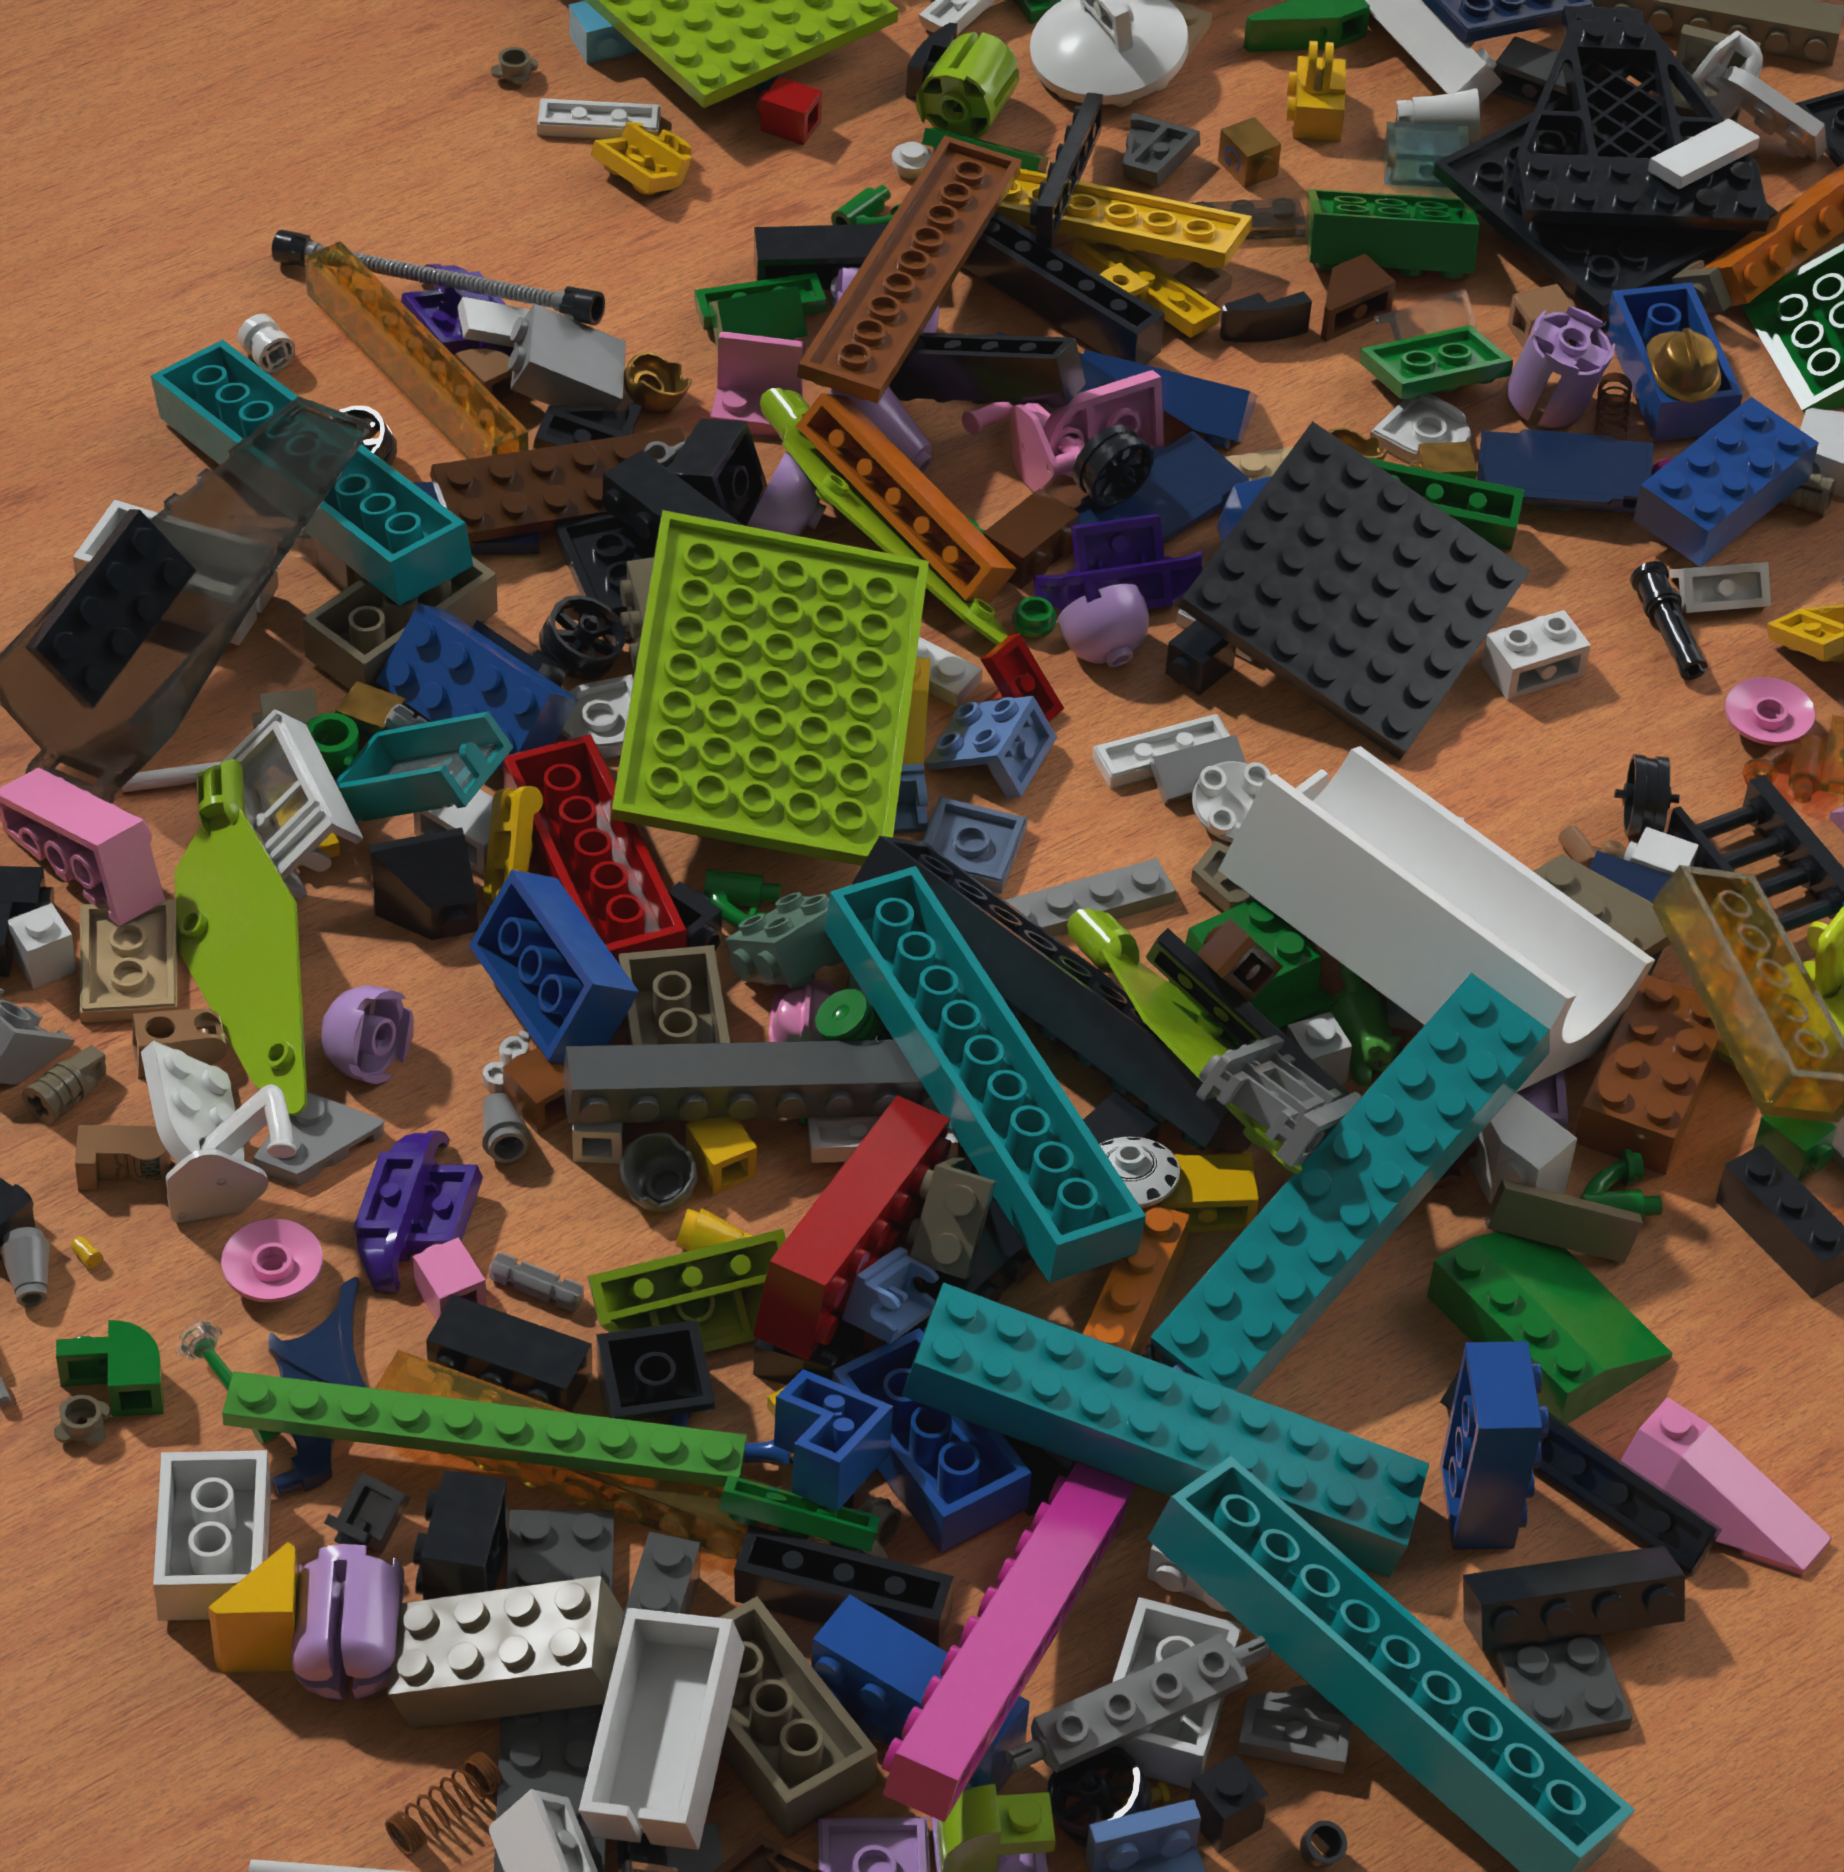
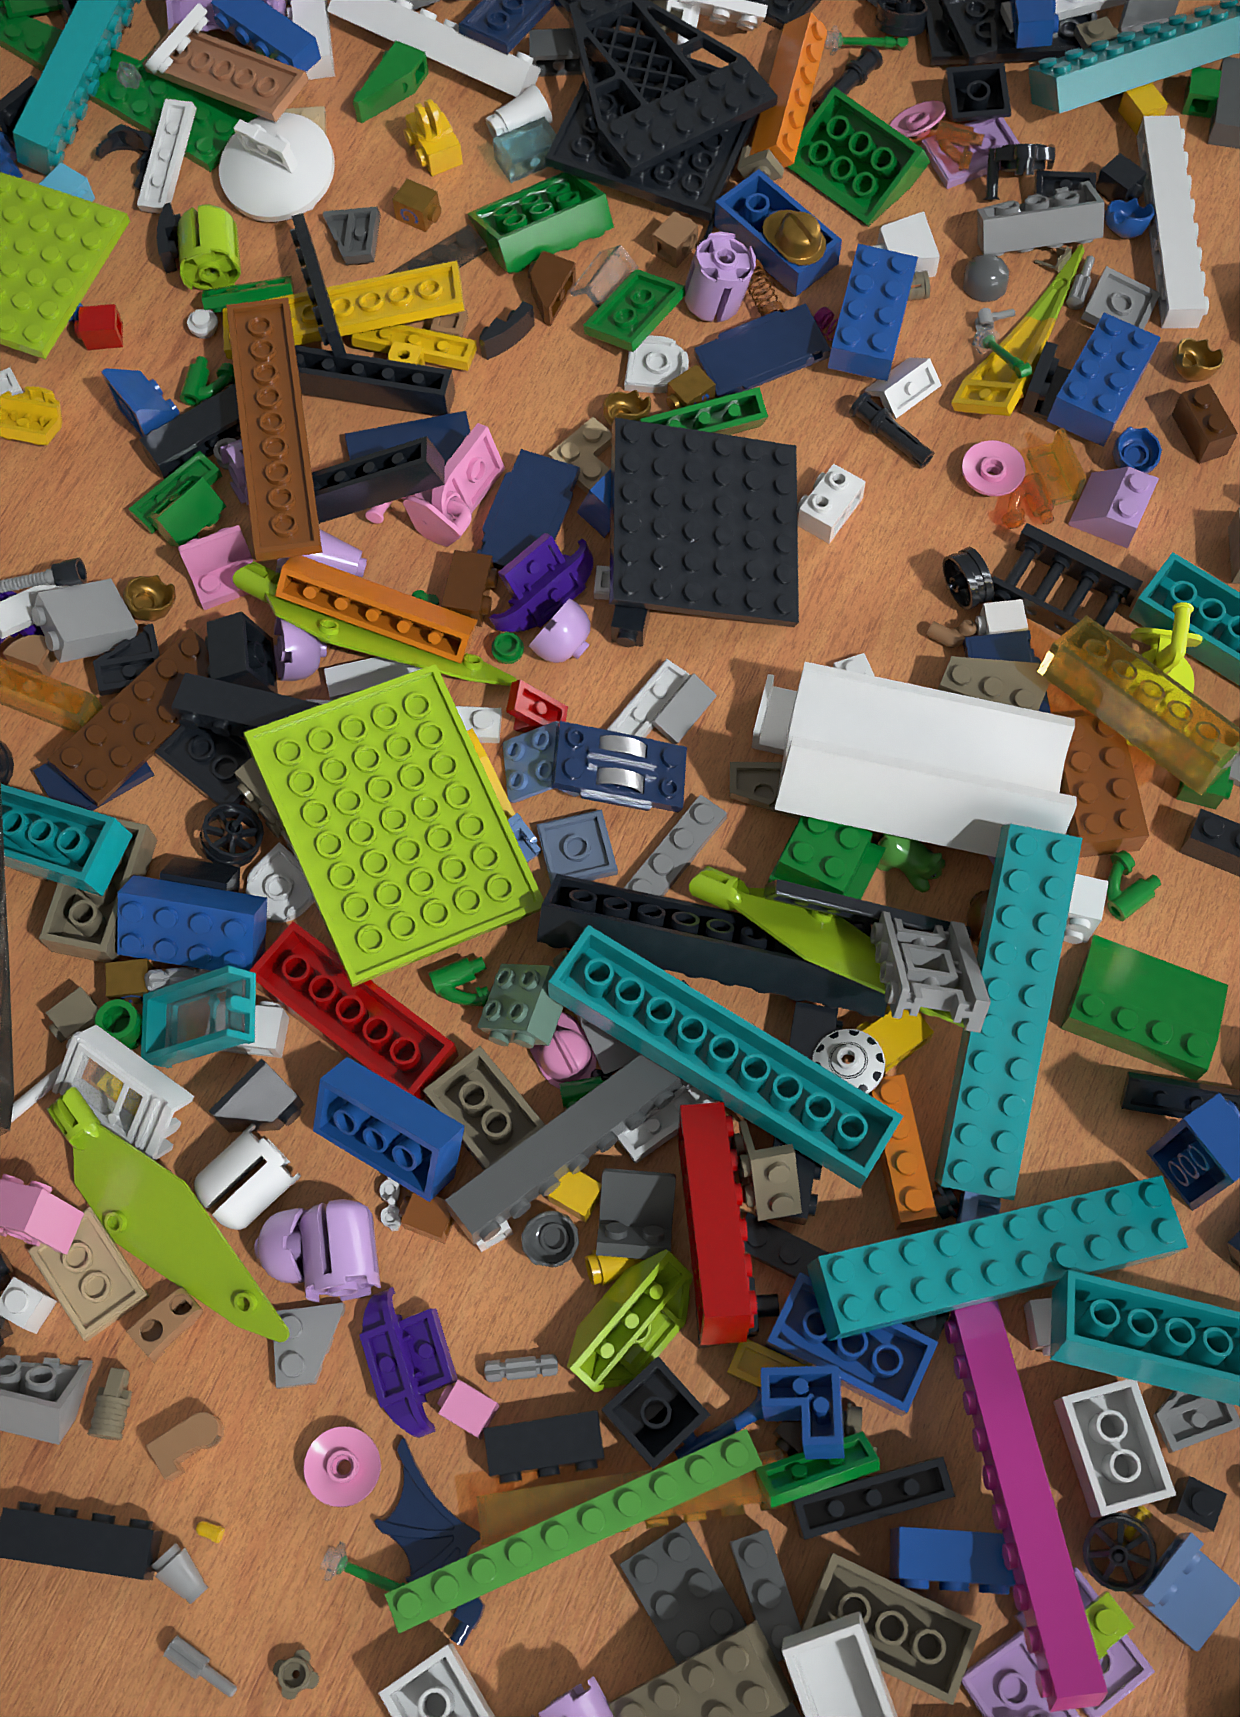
camera: 25 degrees left, 20 degrees up
(123, 1360) = (300, 1610): green brick -> none
(207, 1134) = (232, 1396): white plate -> none
(361, 944) = (233, 1166): none -> white cylinder
(369, 1514) = (533, 1634): black bracket -> none
(414, 1062) = (339, 1250): none -> lavender cylinder
(464, 1536) = (618, 1630): black brick -> none
(503, 1129) = (424, 1260): light grey cone -> none
(509, 836) = (294, 1039): yellow plate -> none
(661, 450) = (196, 658): light grey hand -> none
(698, 915) = (443, 1014): black bracket -> none
(771, 1186) = (635, 1213): none -> dark grey bracket
(782, 188) = (139, 399): none -> blue slope
(850, 1017) = (605, 1055): green piece -> none
(886, 1299) = (769, 1260): medium blue hinge -> none
(1076, 780) = (619, 768): none -> dark blue piece
(1113, 465) = (496, 510): black wheel -> none
(1138, 1703) = (1119, 1485): light grey plate -> none
(1201, 404) = (514, 422): blue wedge -> none
(1226, 794) = (722, 720): white dish -> none
(1239, 959) = (835, 879): reddish brown slope -> none
(1324, 1043) = (893, 888): white brick -> none
(1563, 1221) = (1119, 934): dark tan tile -> none
(1703, 153) = (714, 68): white tile -> none

